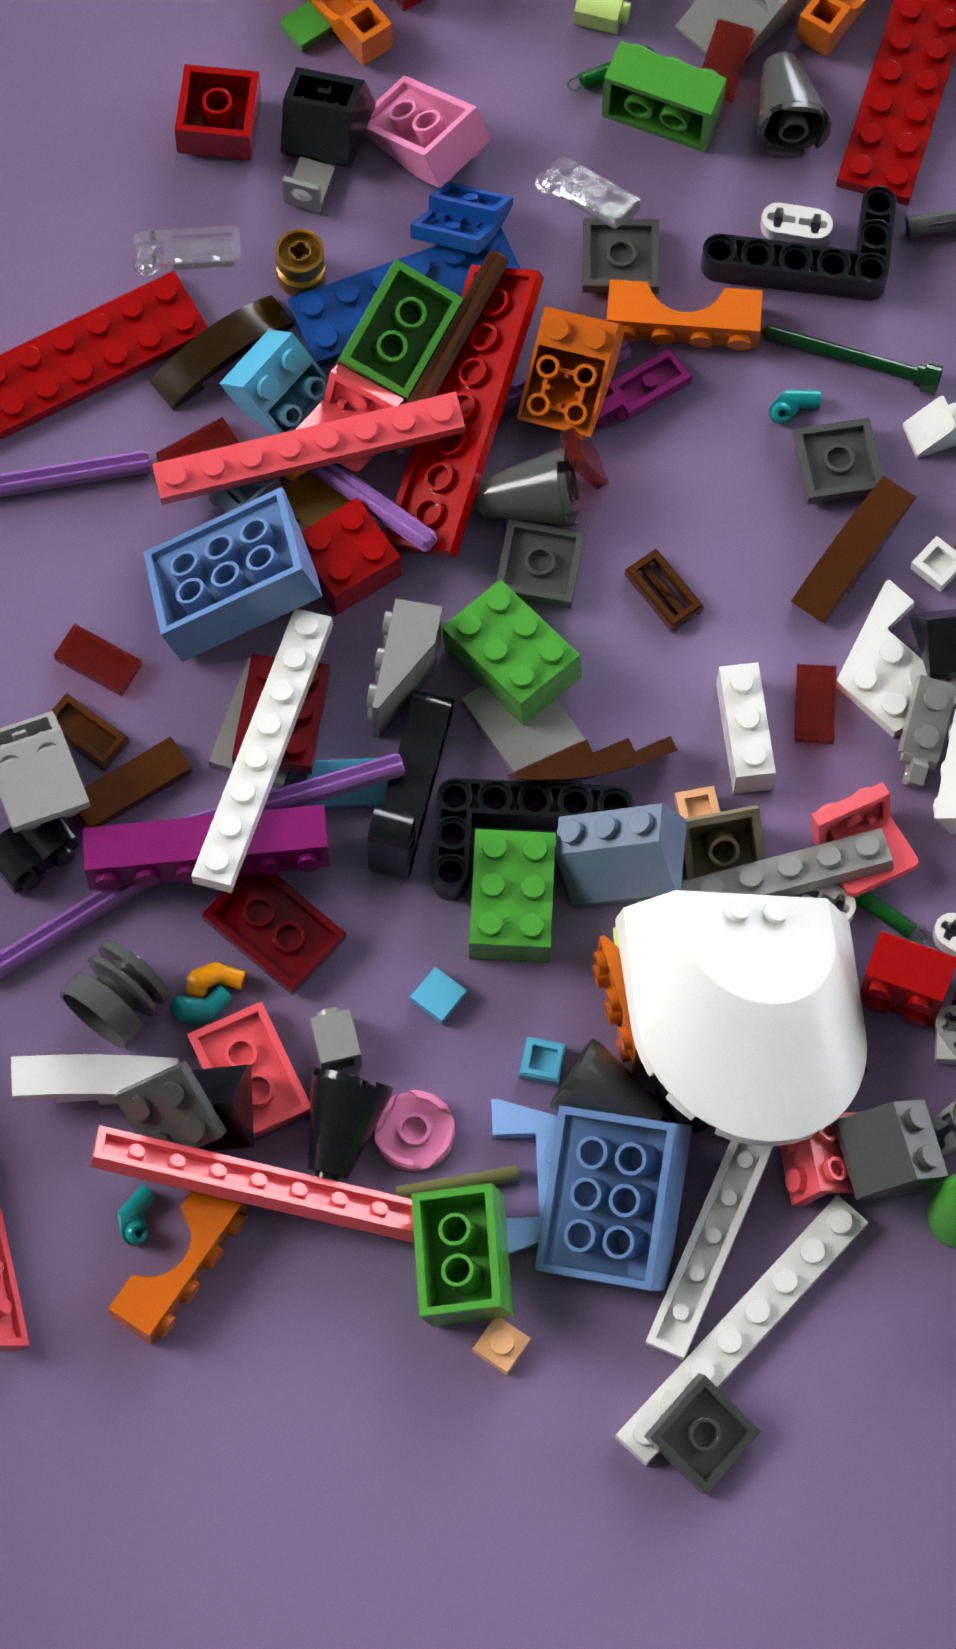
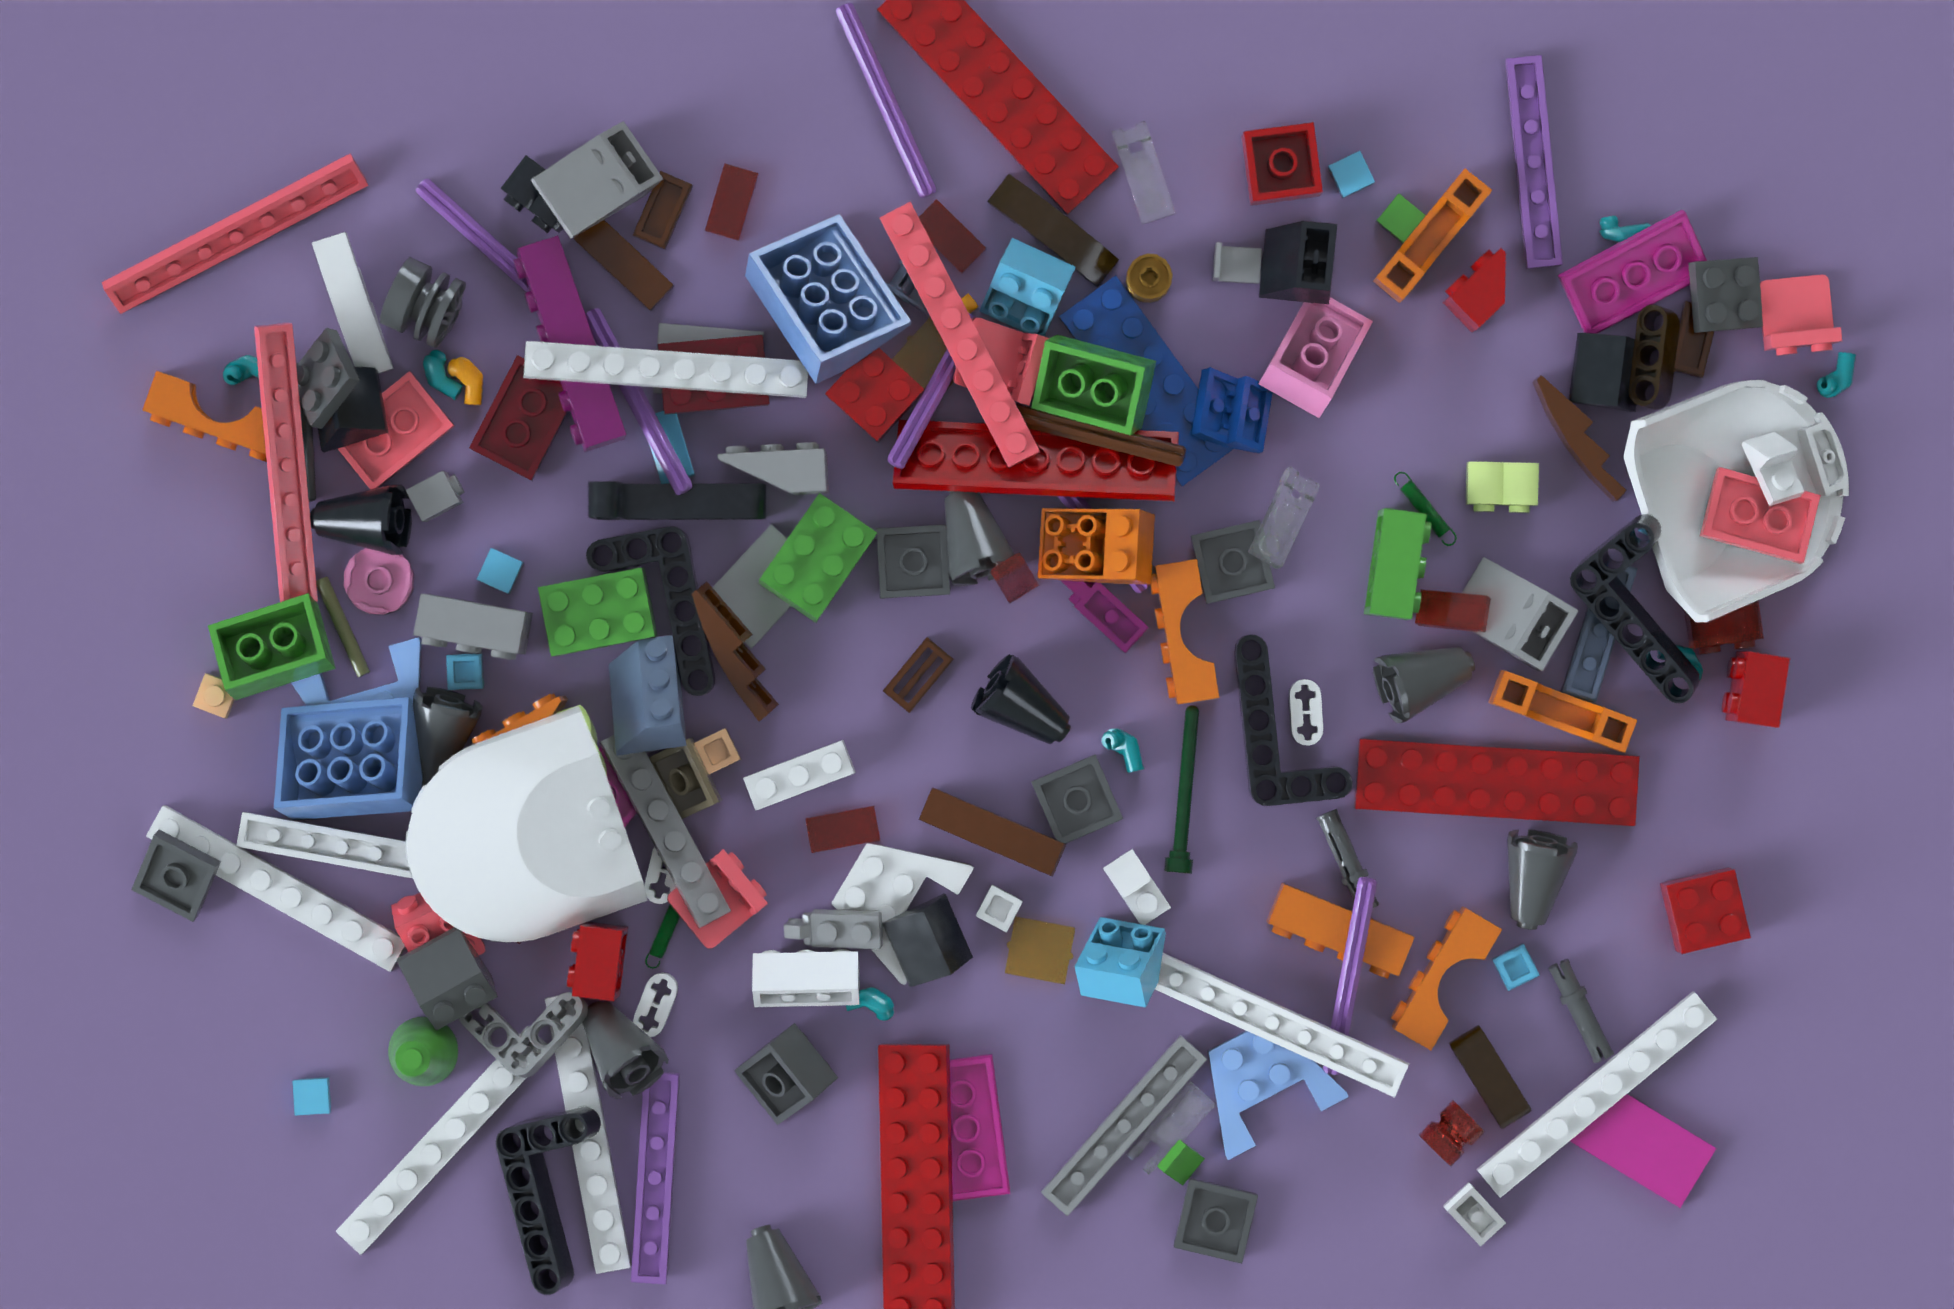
camera: 80 degrees right, 20 degrees up
(248, 56) = (1351, 174): none -> medium azure tile
(494, 1026) = (472, 626): none -> light grey brick
(717, 487) = (1021, 702): none -> black cone

